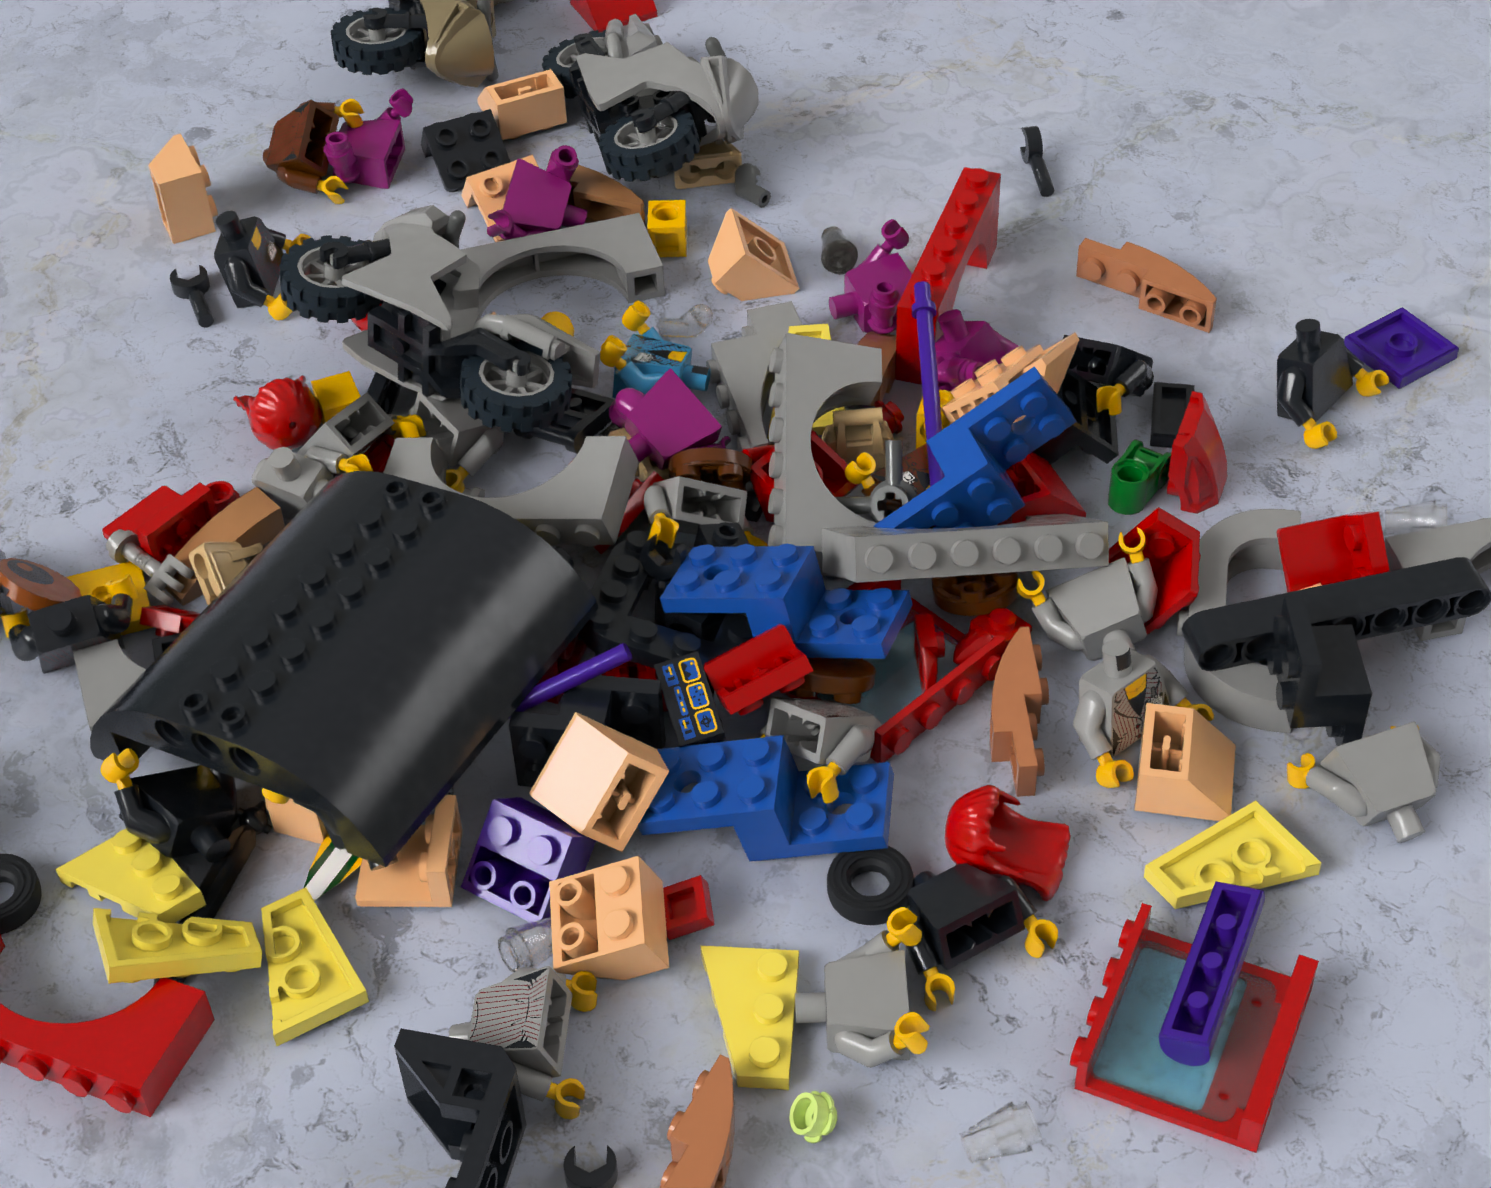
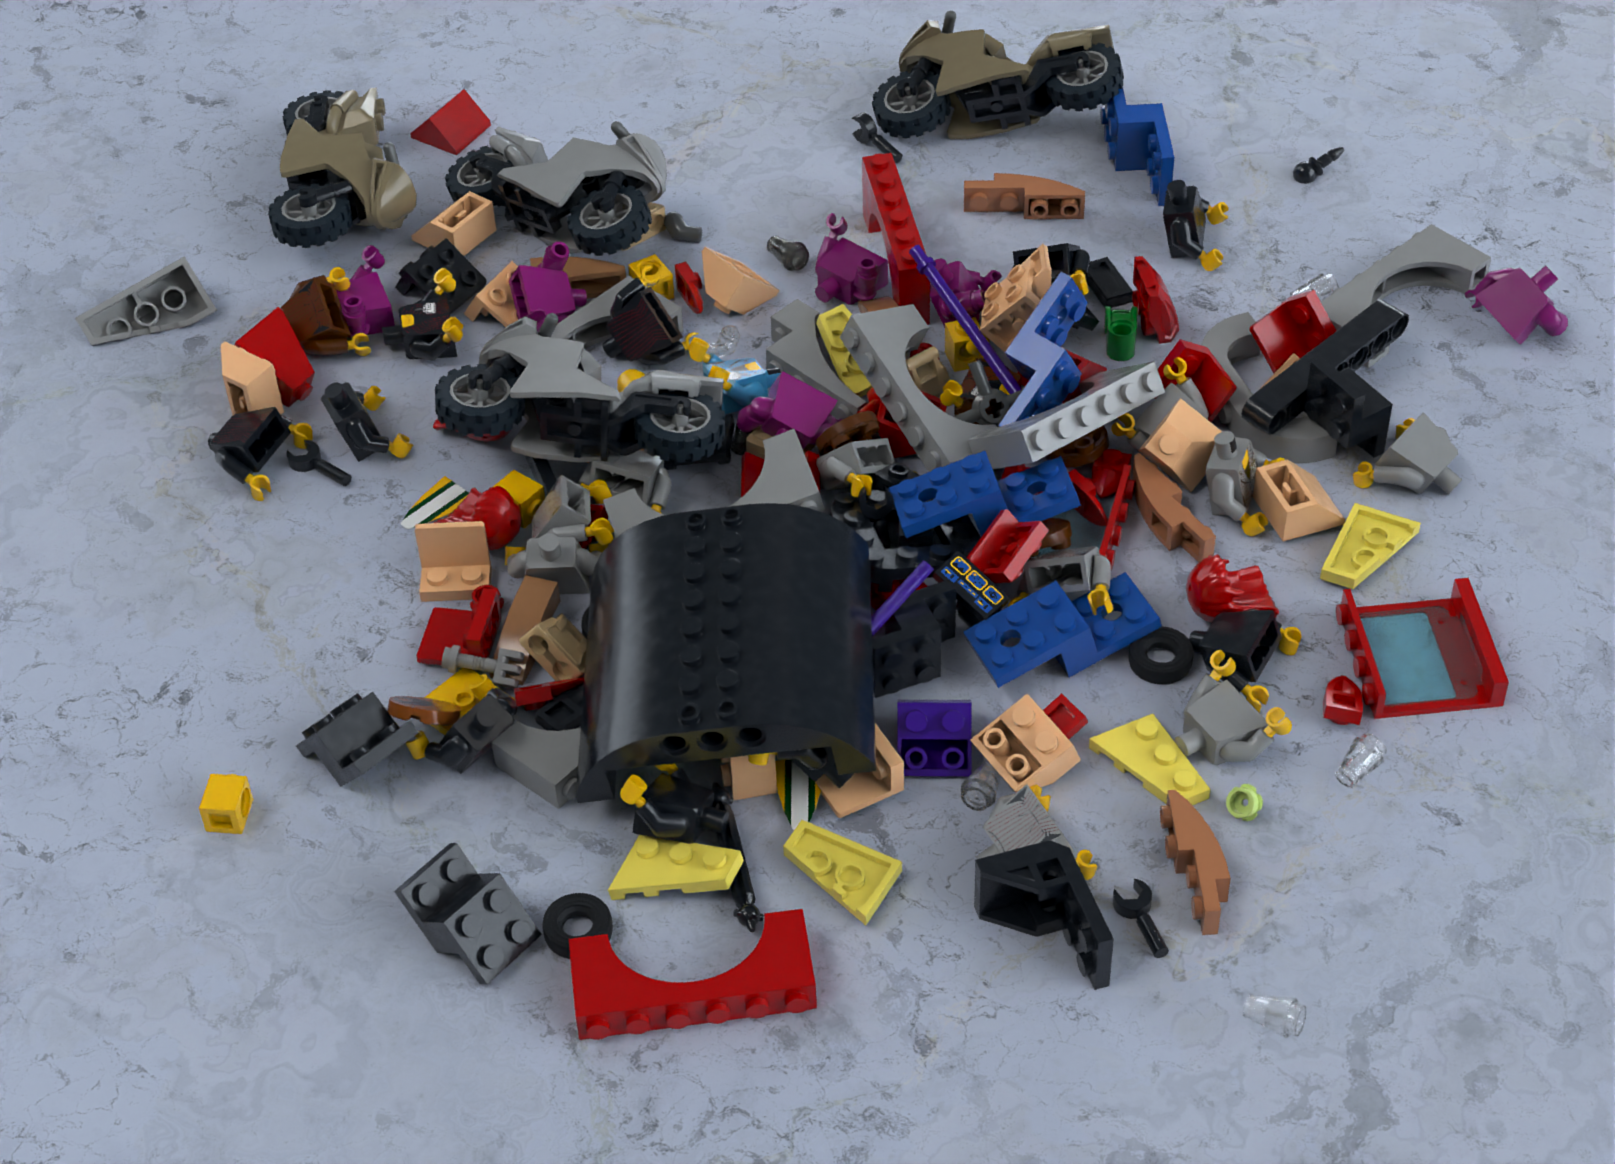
camera: 30 degrees left, 0 degrees up
(143, 245) = (251, 440): none -> black torso
(160, 949) = (752, 897): light yellow wing -> none
(189, 80) = (155, 304): none -> light grey wedge
(218, 443) = (452, 560): none -> light nougat bracket
(234, 166) = (277, 343): none -> red slope
(250, 382) = (435, 503): none -> sticker
(409, 186) = (427, 324): none -> torso
(600, 781) = (960, 660): light nougat slope -> none
(604, 267) = (643, 326): none -> black torso
(701, 247) = (688, 285): none -> red plate
(1041, 1045) = (1343, 701): none -> red plate
(1076, 627) = (1182, 445): none -> light nougat slope
(1196, 141) = (987, 87): none -> piece
(1210, 973) = (1411, 613): dark purple brick -> none
(1331, 254) = (1139, 141): none -> blue bracket
(1401, 347) = (1219, 180): dark purple tile -> none

